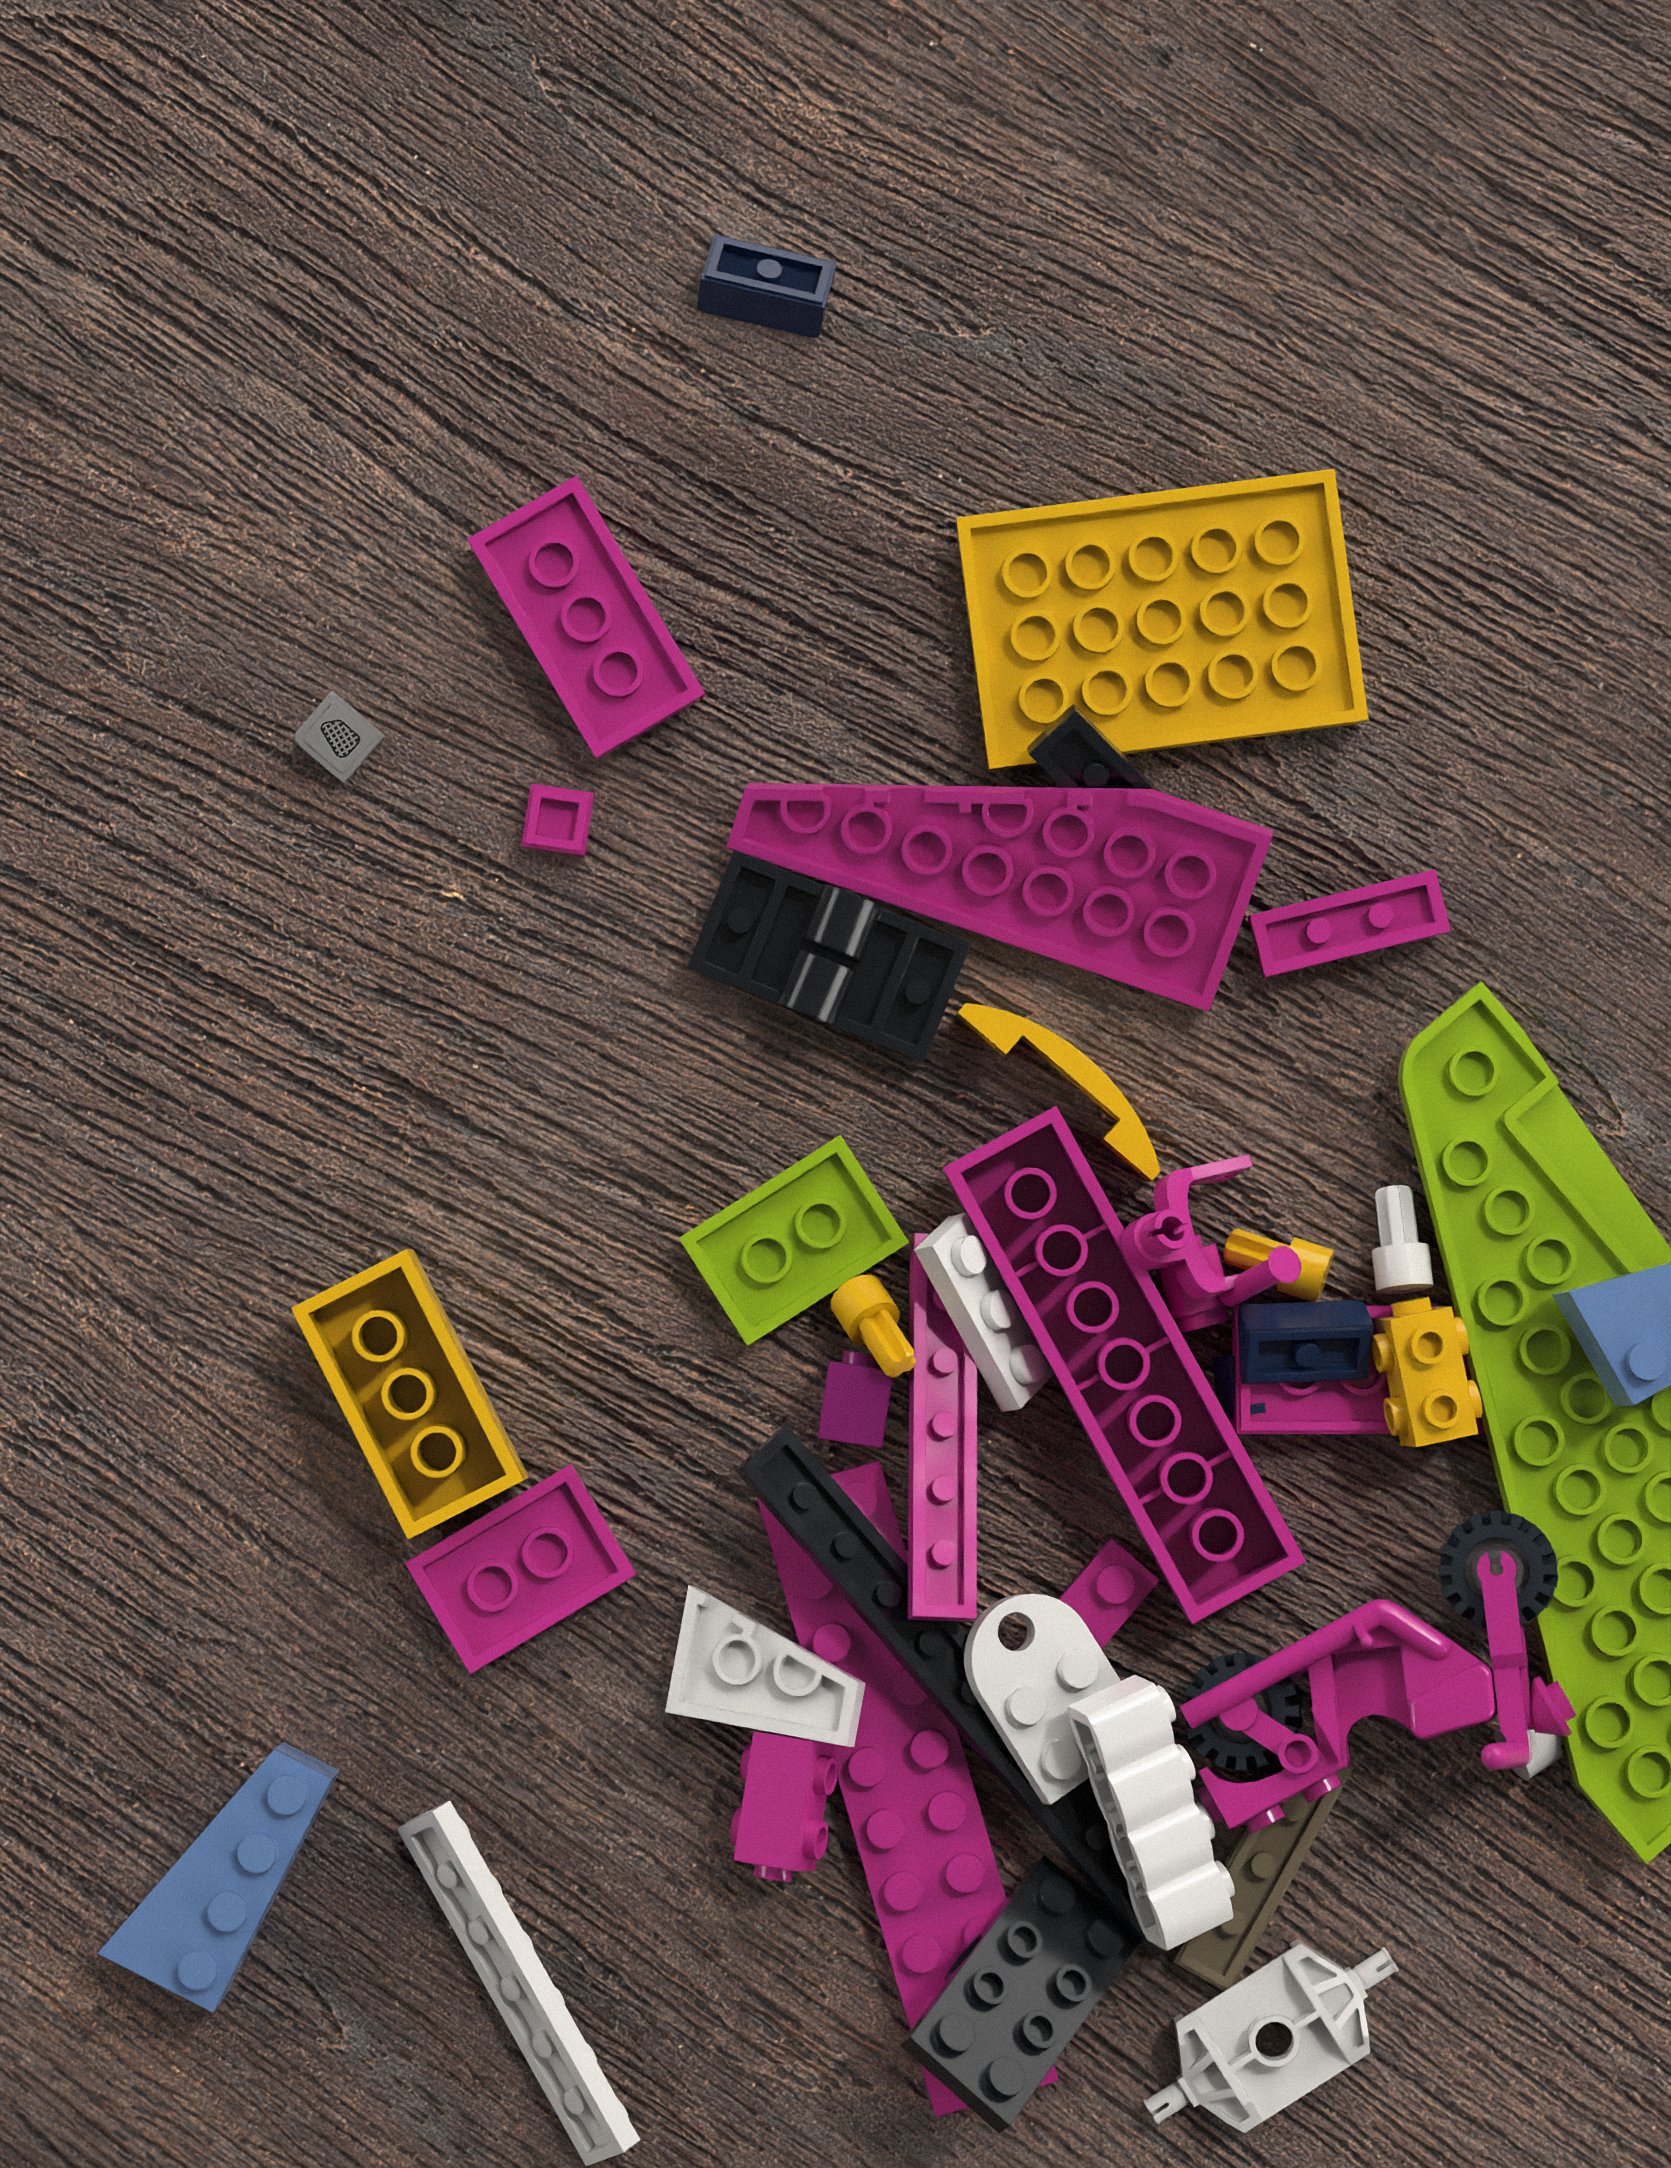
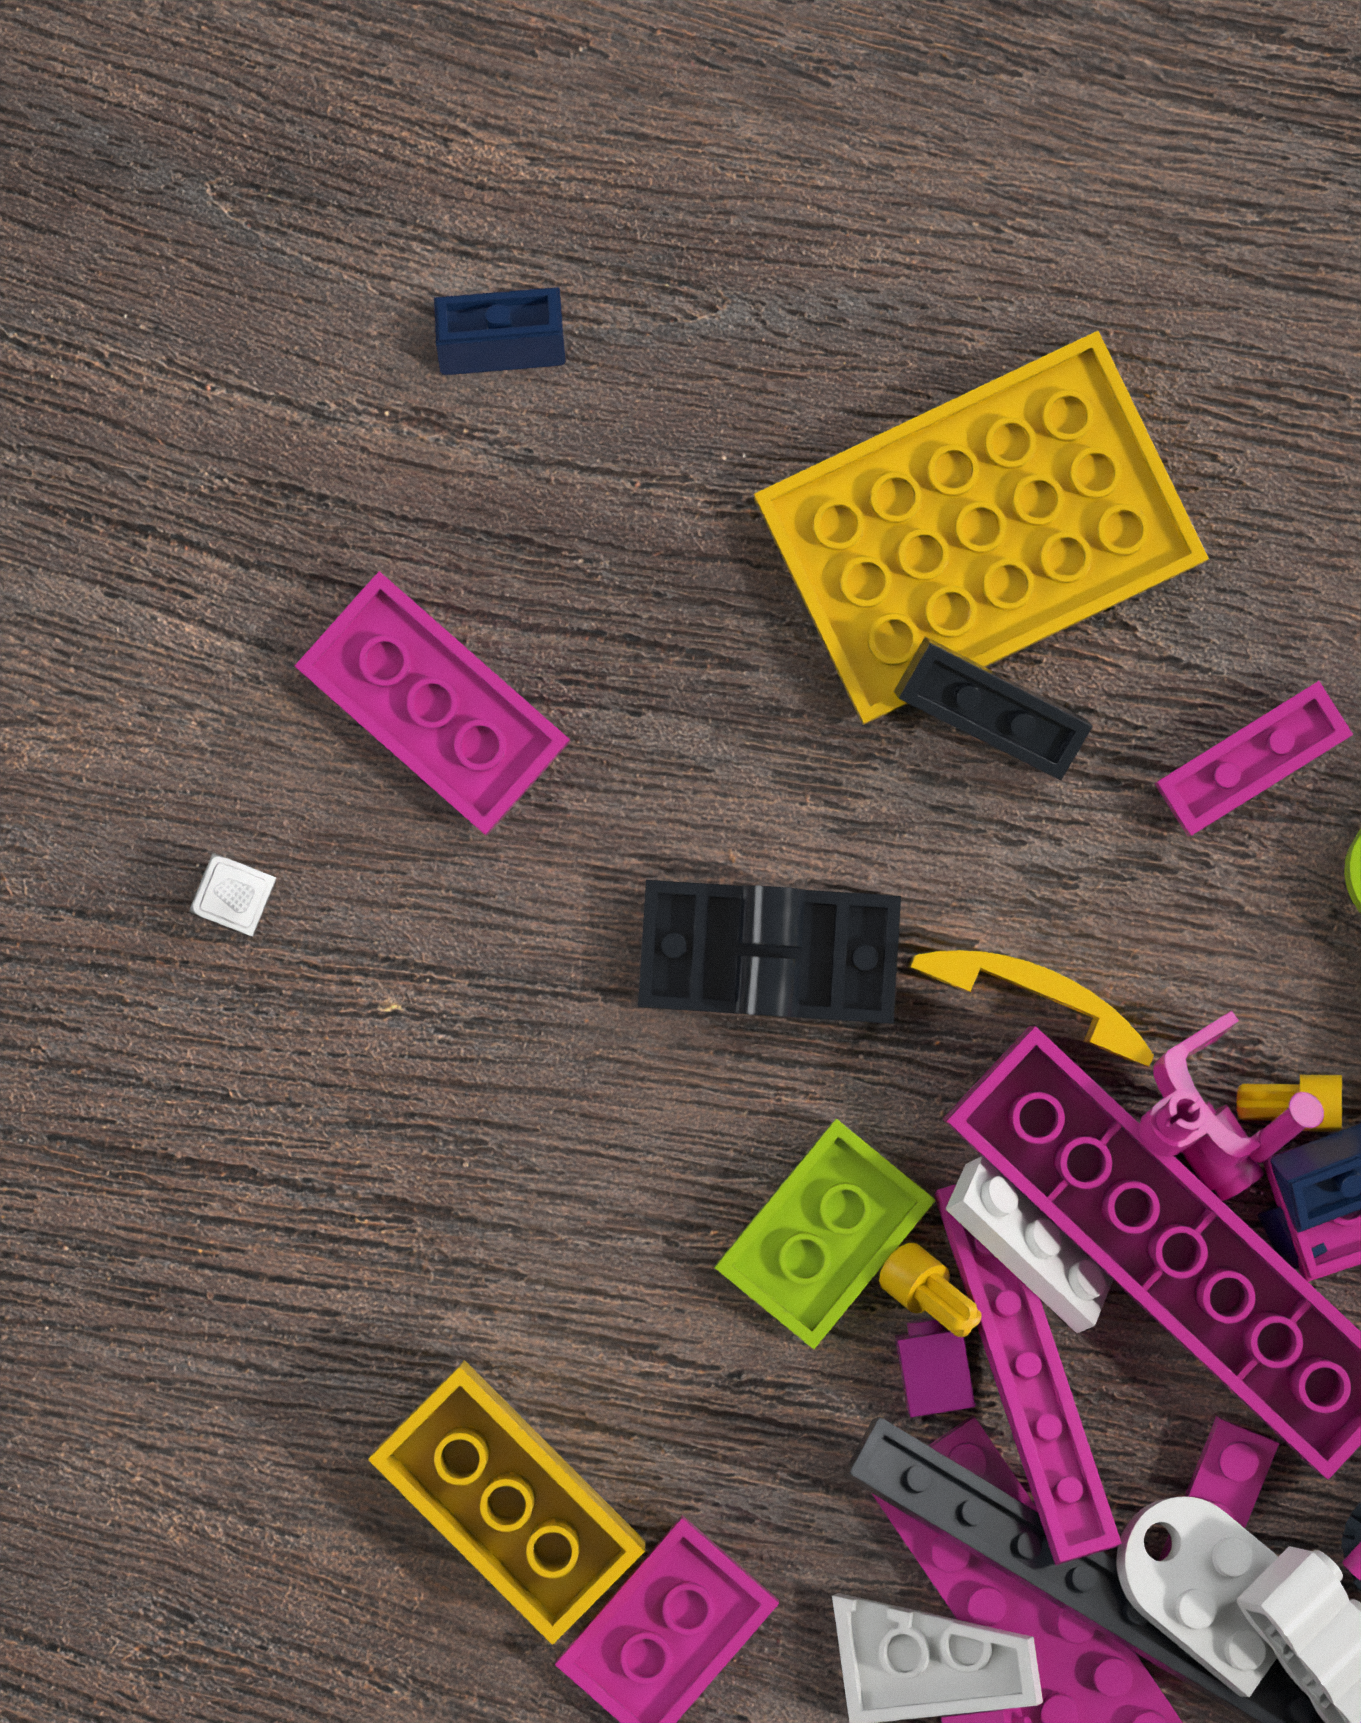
camera: 15 degrees left, 0 degrees up
(557, 820) = (468, 905): dark pink tile -> none
(1073, 874) = (981, 797): dark pink wing -> none

